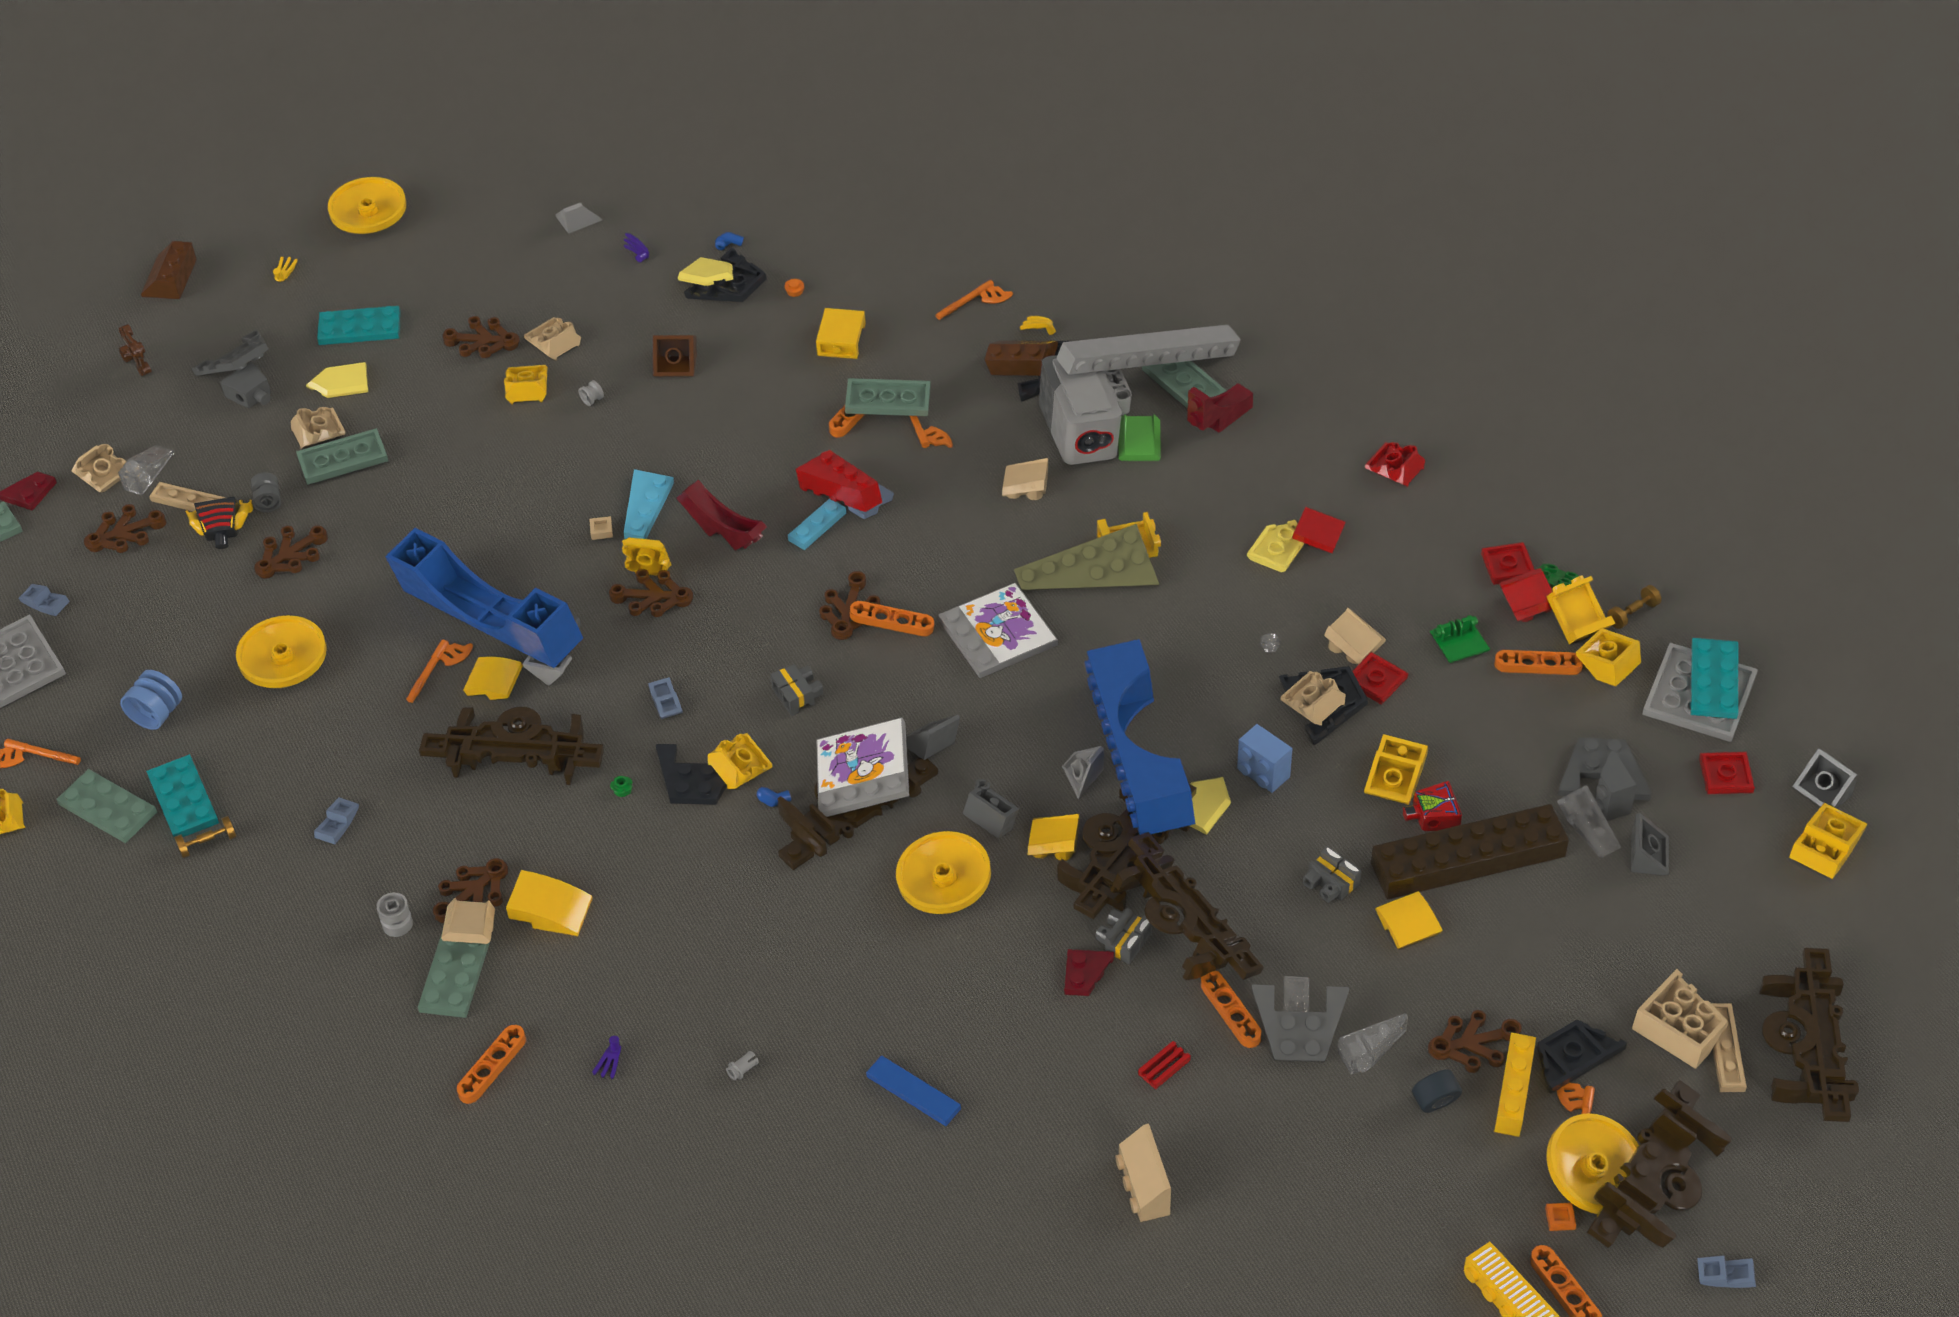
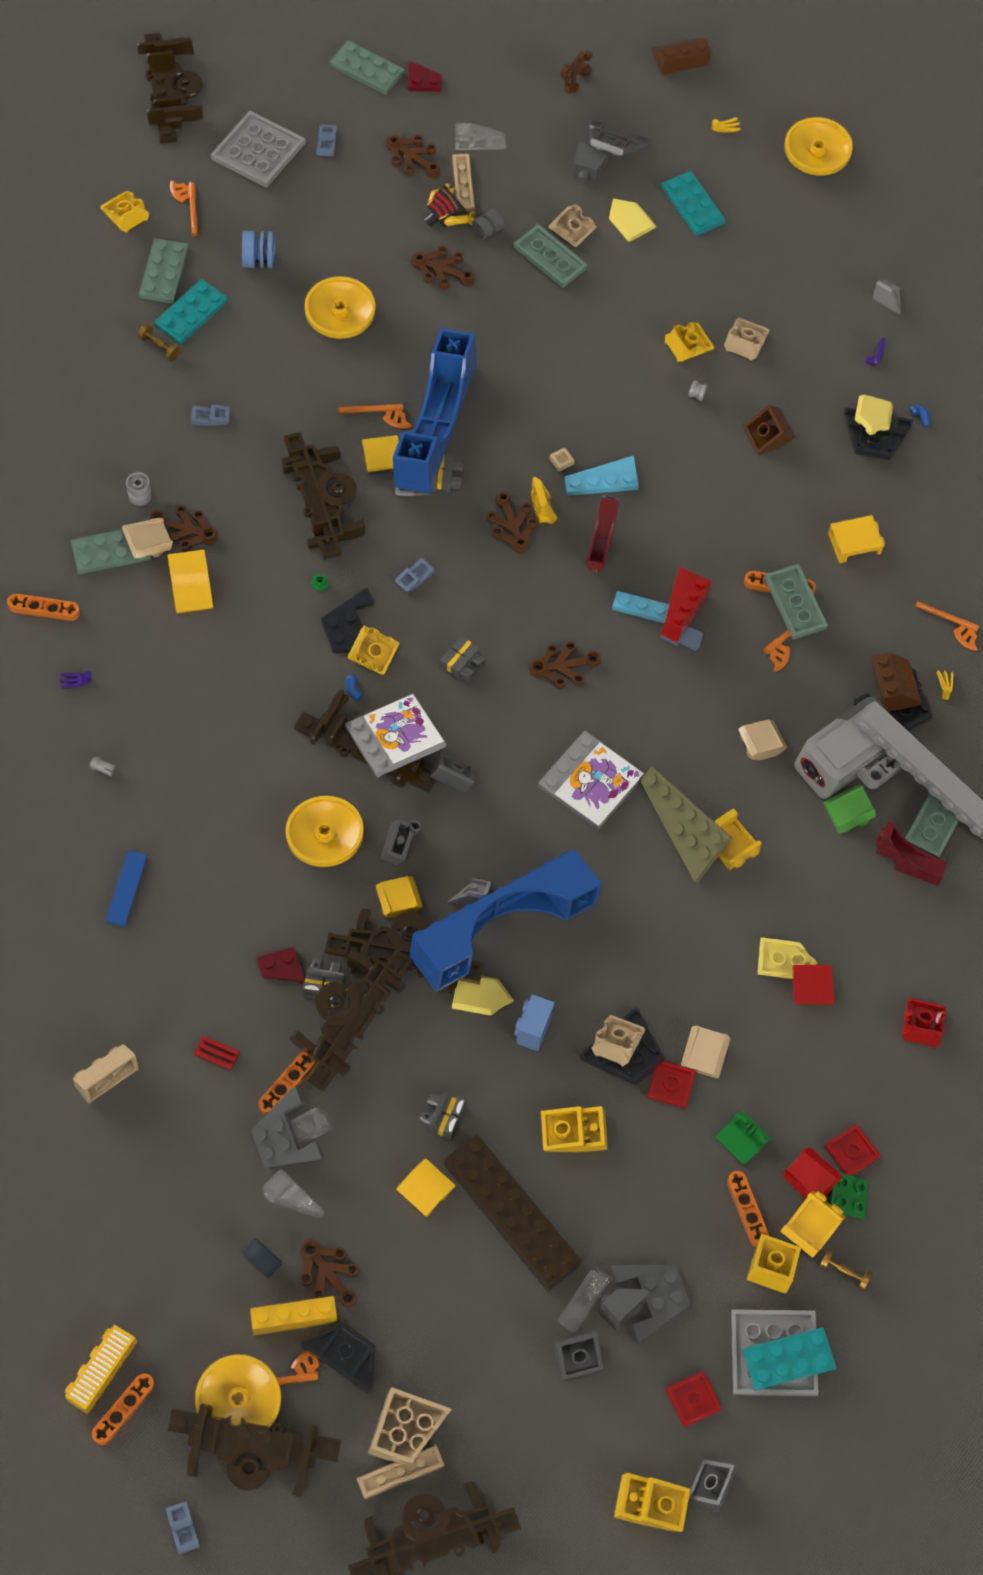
camera: 60 degrees right, 15 degrees up
(99, 467) = (463, 109): tan slope -> none
(505, 340) = (720, 292): reddish brown plant -> none
(794, 287) = (893, 484): orange plate -> none
(891, 621) = (563, 698): orange beam -> none
(1270, 642) = (669, 988): clear plate -> none
(1434, 808) = (547, 1172): red torso -> none
(1560, 1216) = (187, 1386): orange tile -> none

